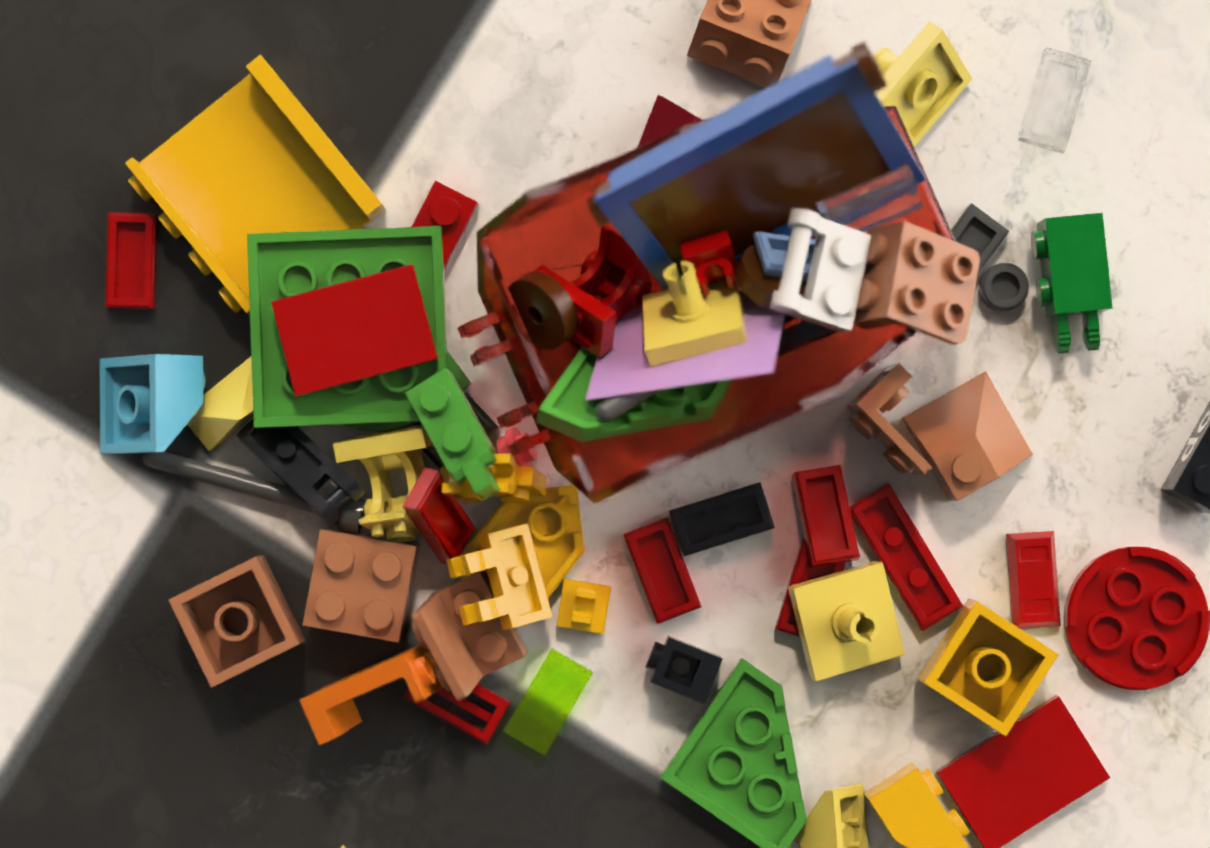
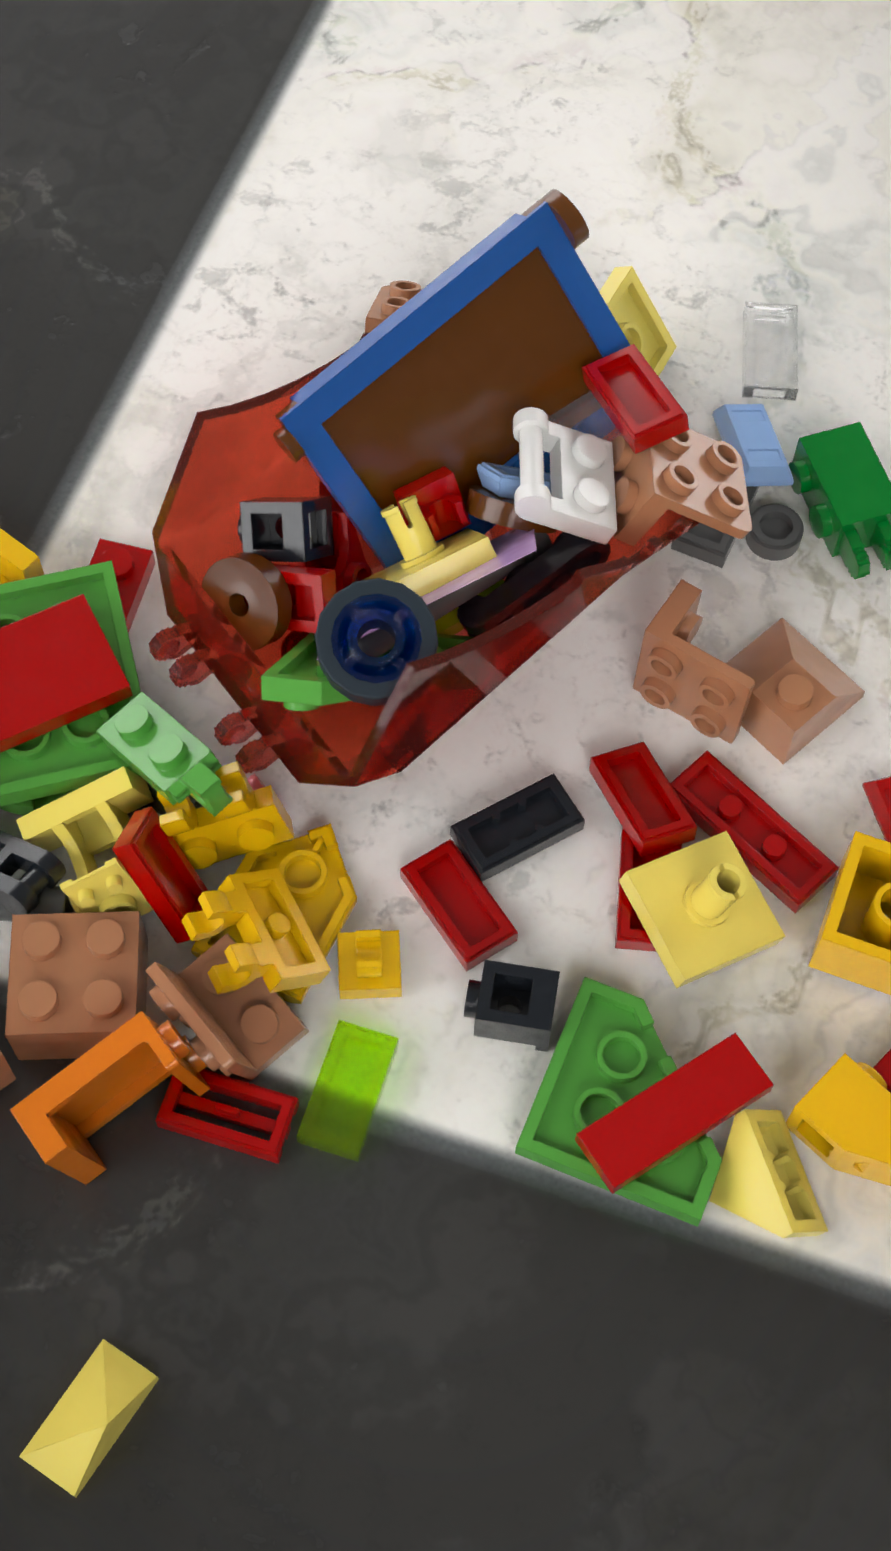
camera: 10 degrees left, 25 degrees down
(585, 251) = (287, 528): none -> black brick
(631, 443) = (366, 607): none -> wheel
(780, 782) = (673, 1112): none -> red tile
(896, 213) = (635, 398): none -> red tile
(1007, 203) = (754, 438): none -> light blue tile

